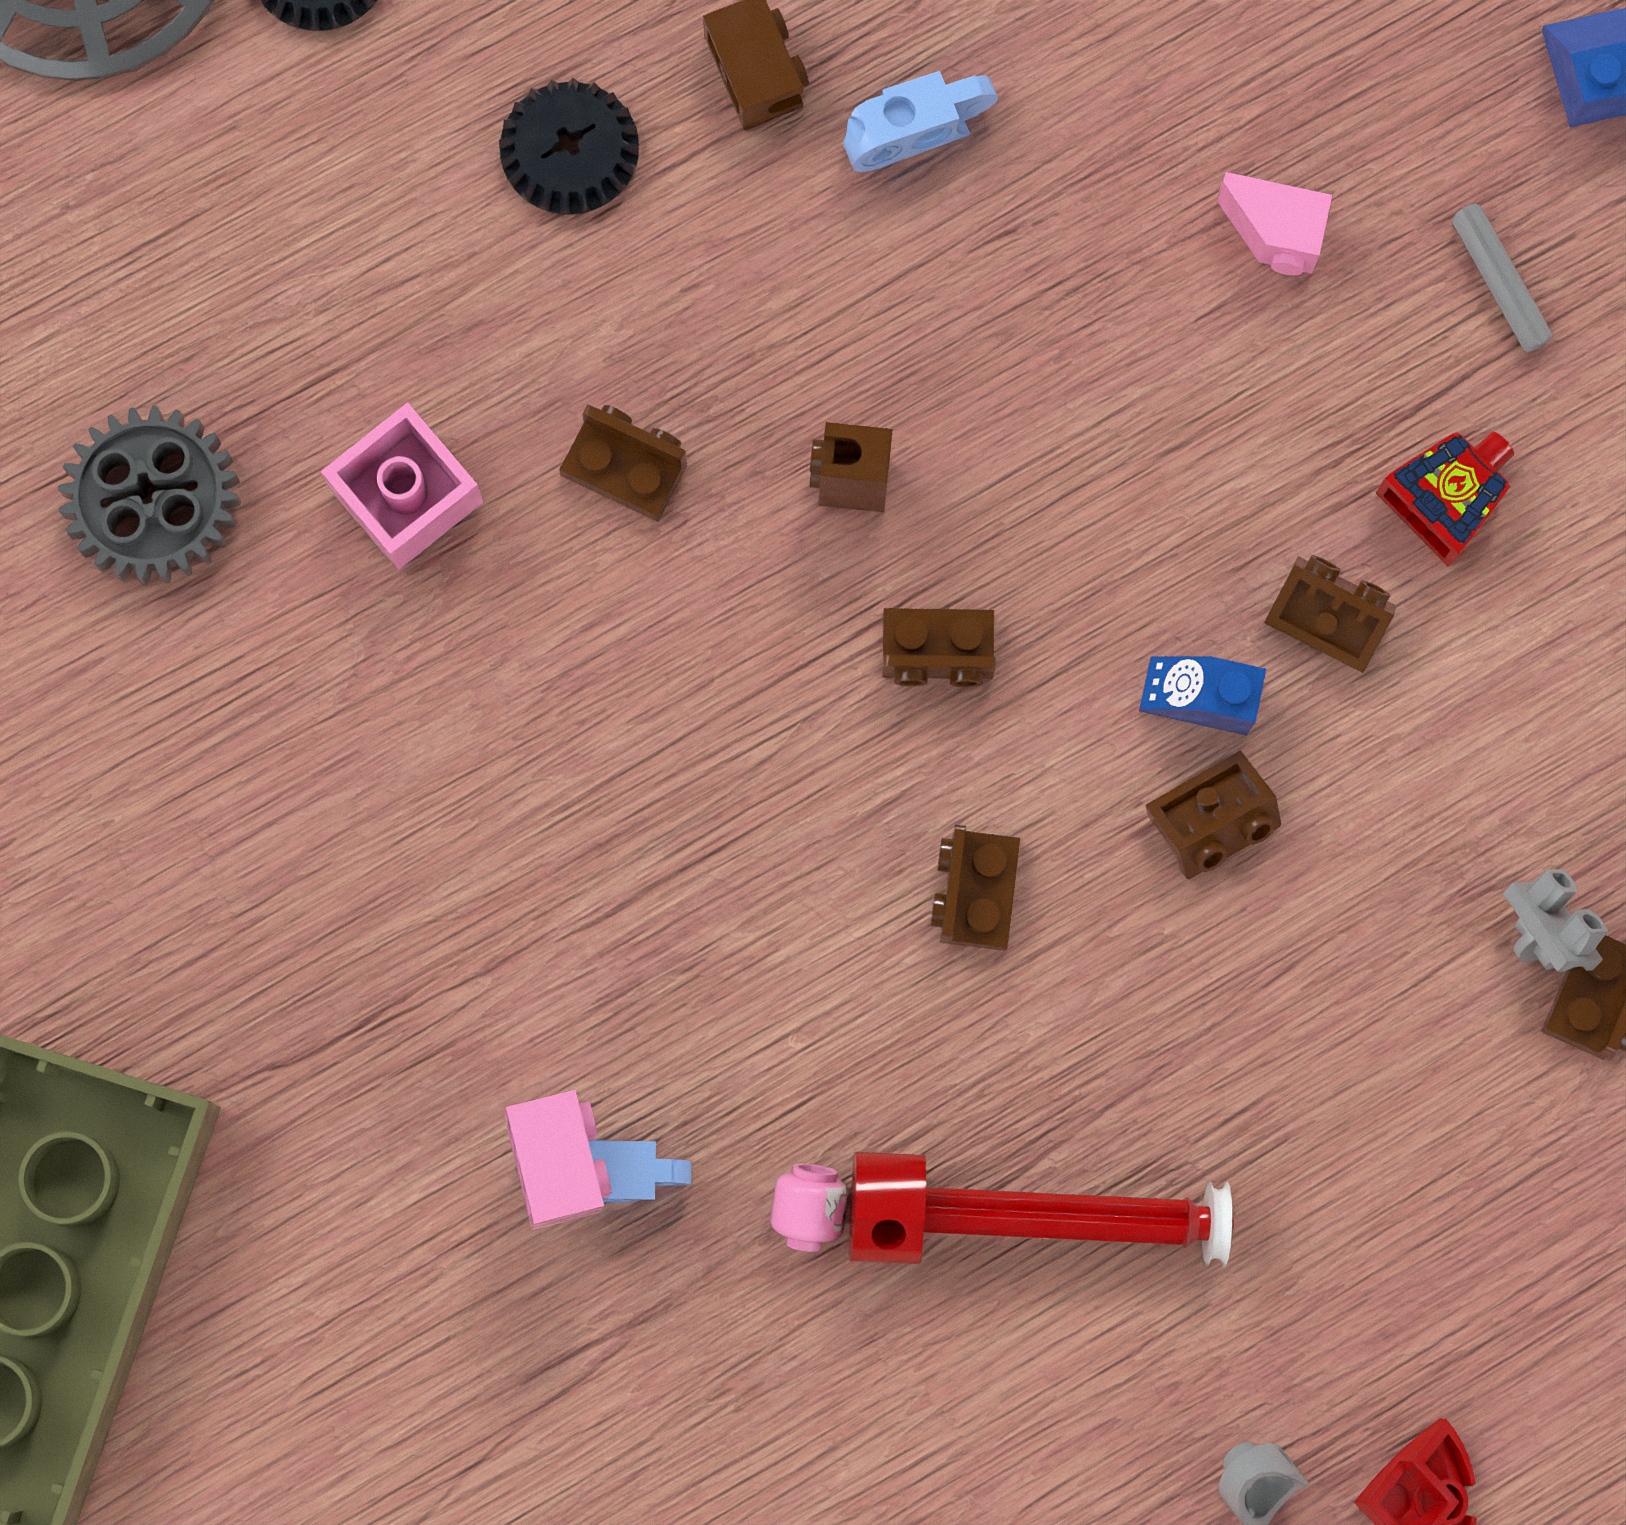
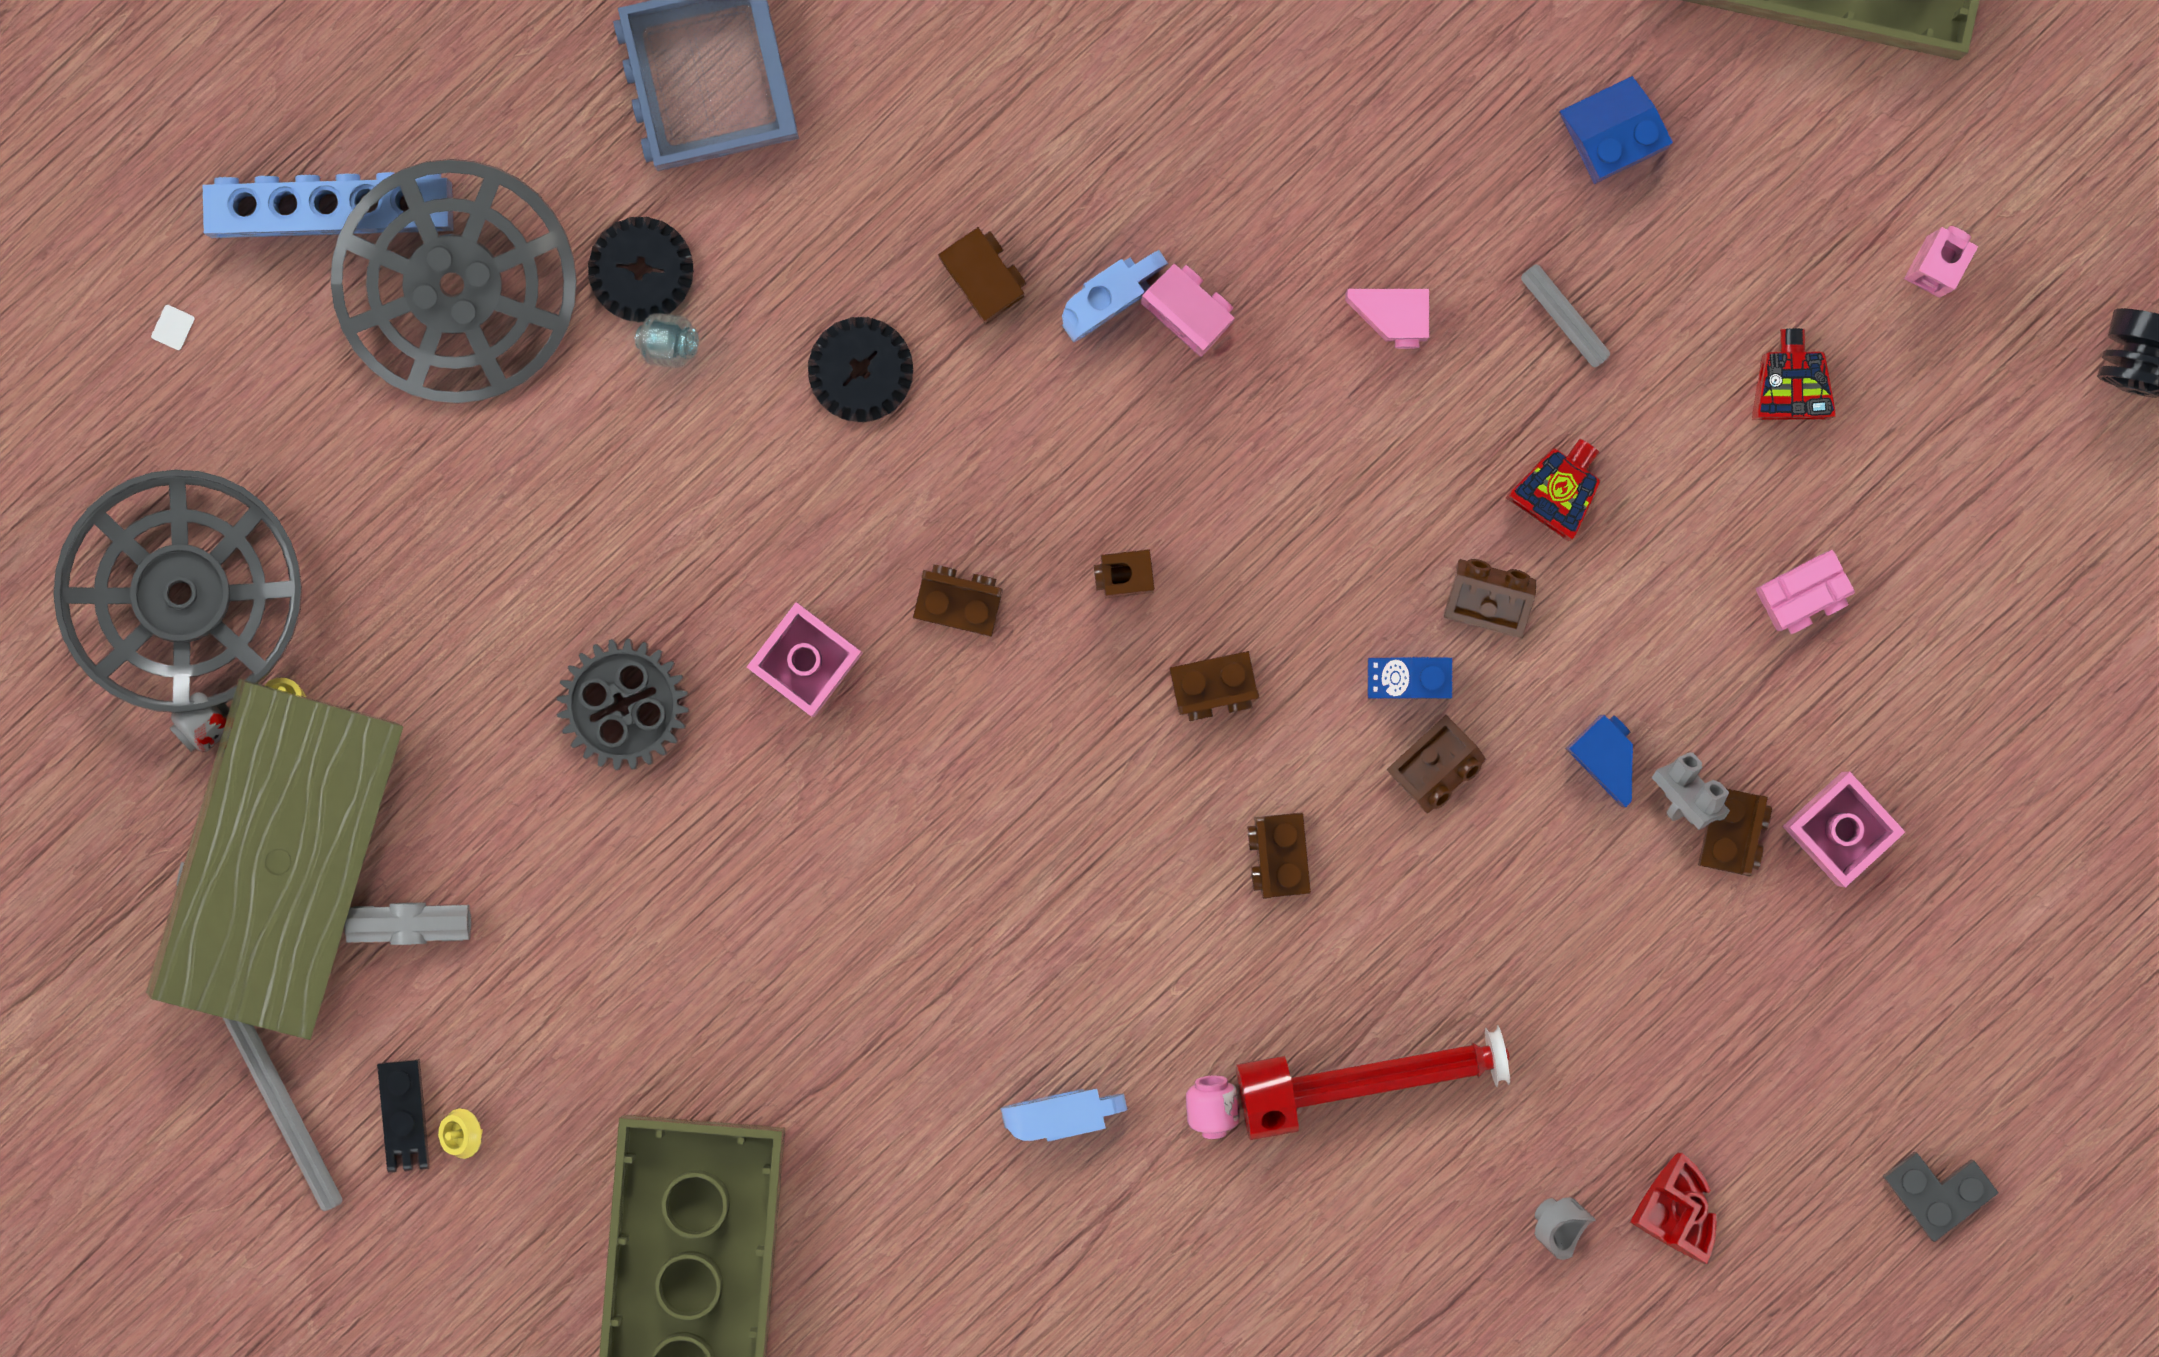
camera: 15 degrees left, 10 degrees up
(328, 52) = (667, 340): none -> clear light blue head
(556, 1160) = (1034, 1123): bright pink brick -> none
(1009, 157) = (1188, 309): none -> bright pink slope
(1446, 854) = (1606, 756): none -> blue slope

